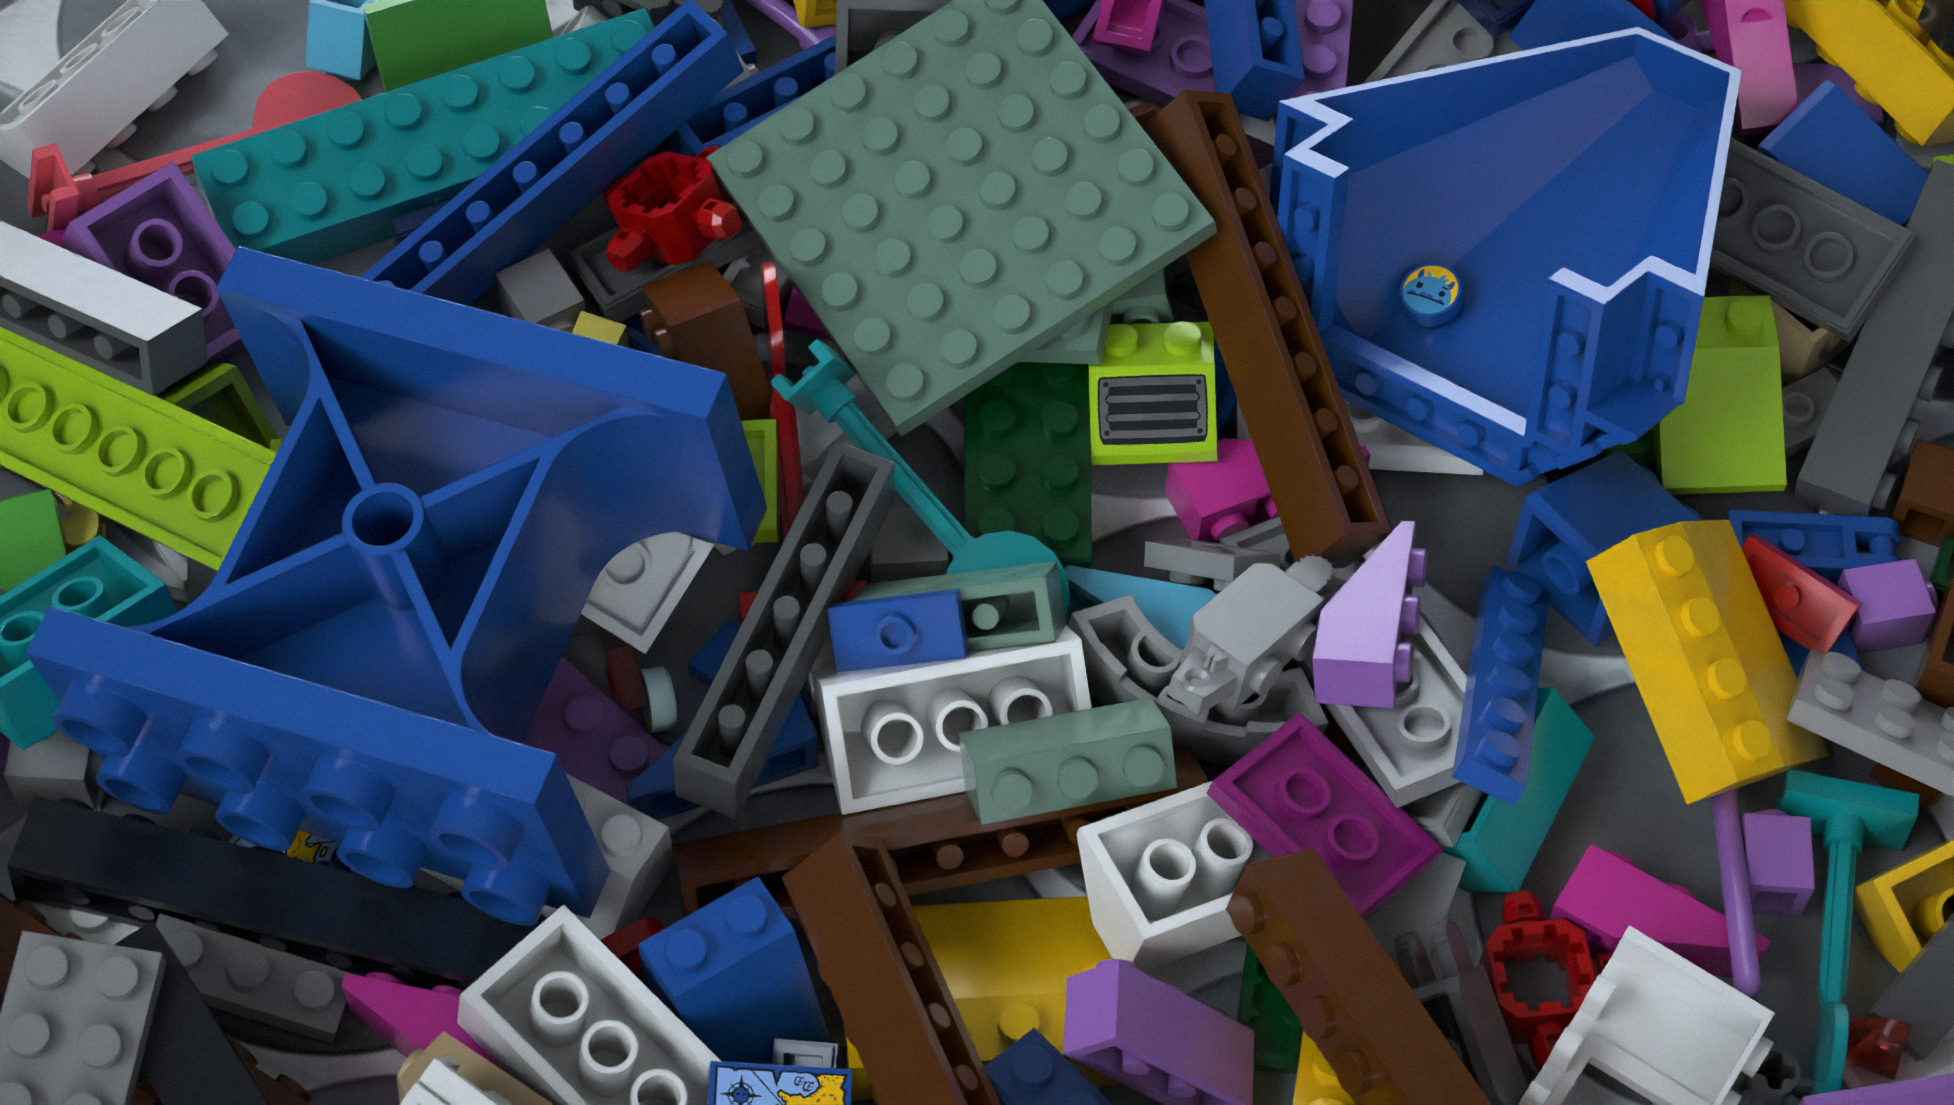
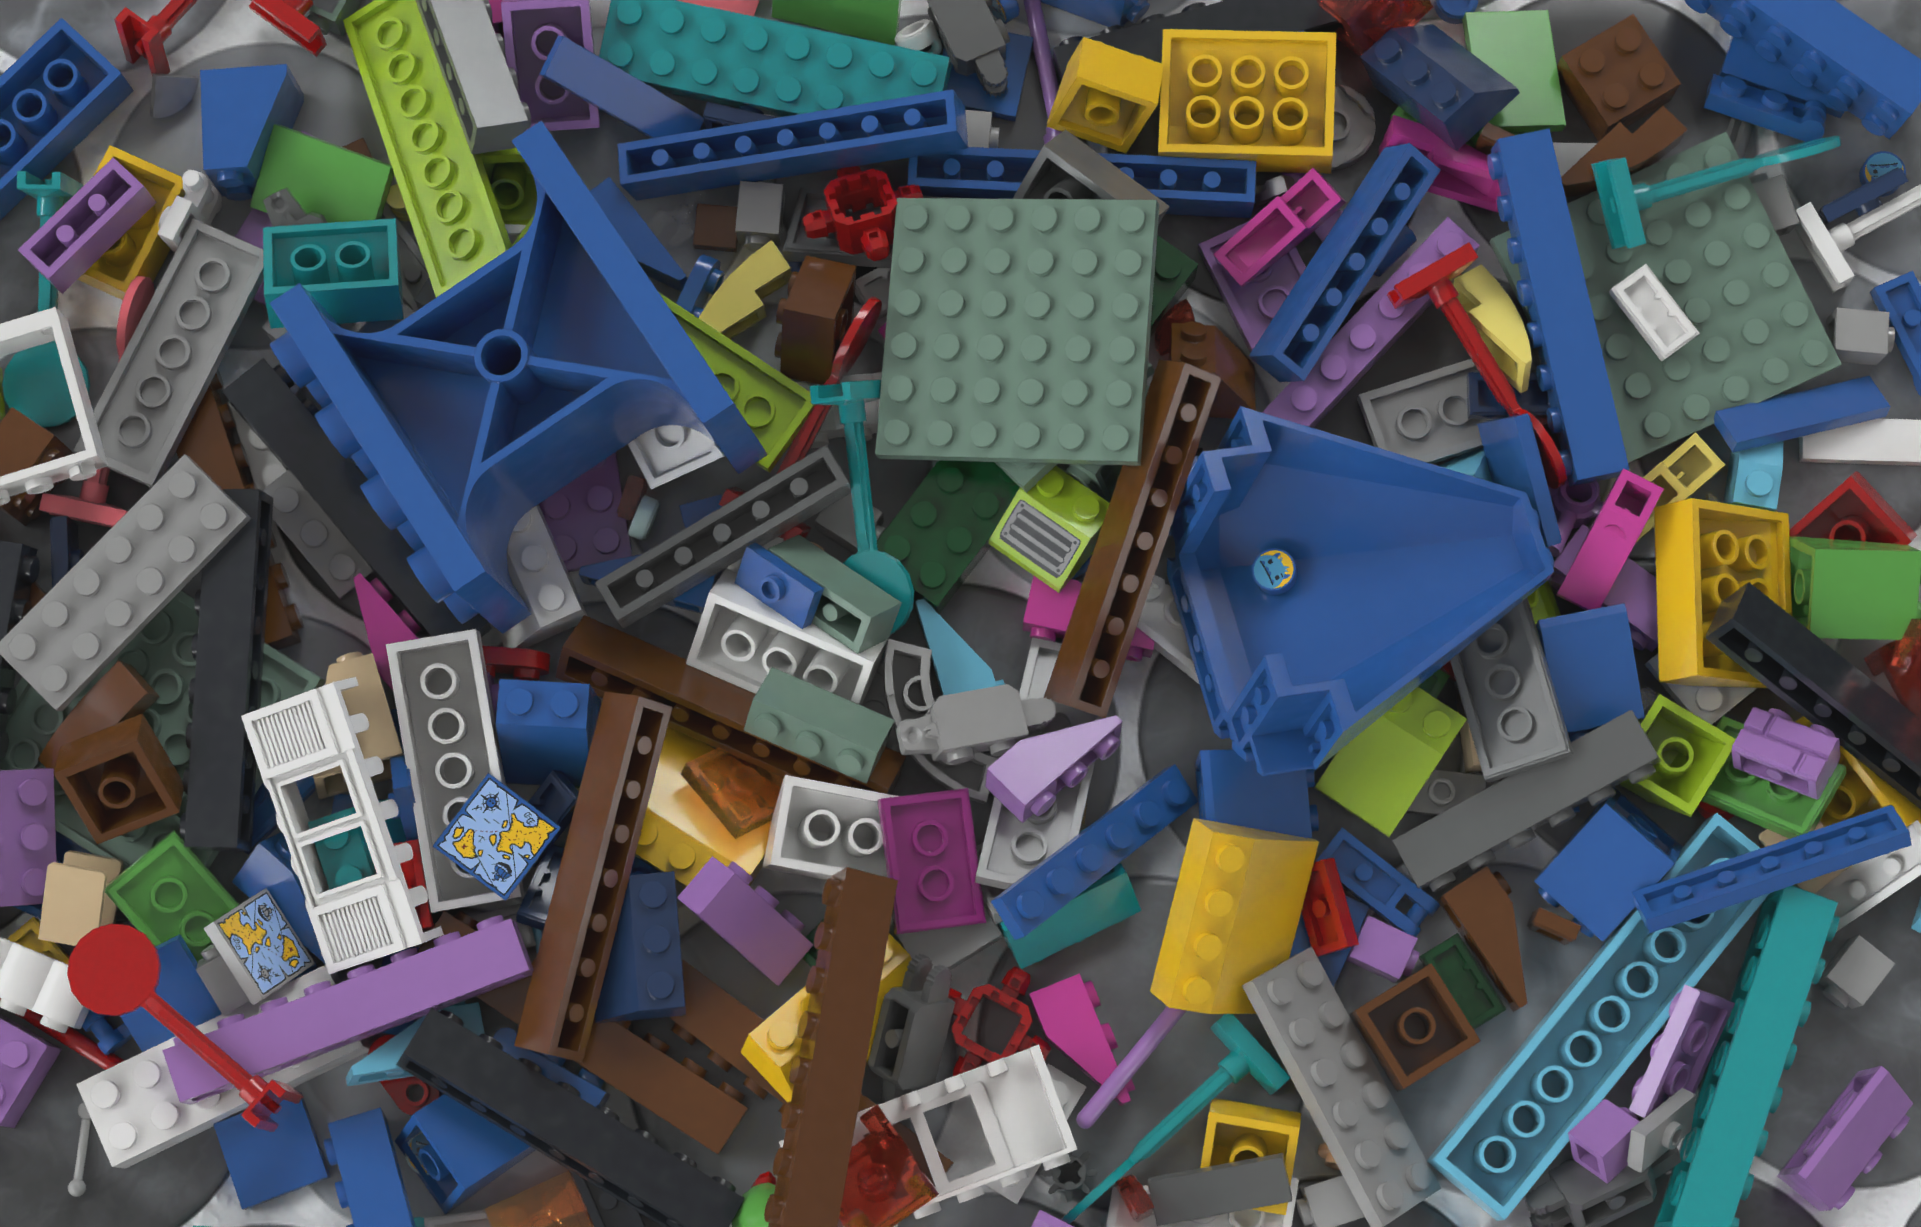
camera: 40 degrees right, 20 degrees up
(206, 243) = (616, 91): none -> blue tile
(1030, 911) = (734, 790): none -> clear orange plate
(1196, 560) = (1008, 652): light grey plate -> none
(1778, 862) = (1182, 1052): medium lavender brick -> none

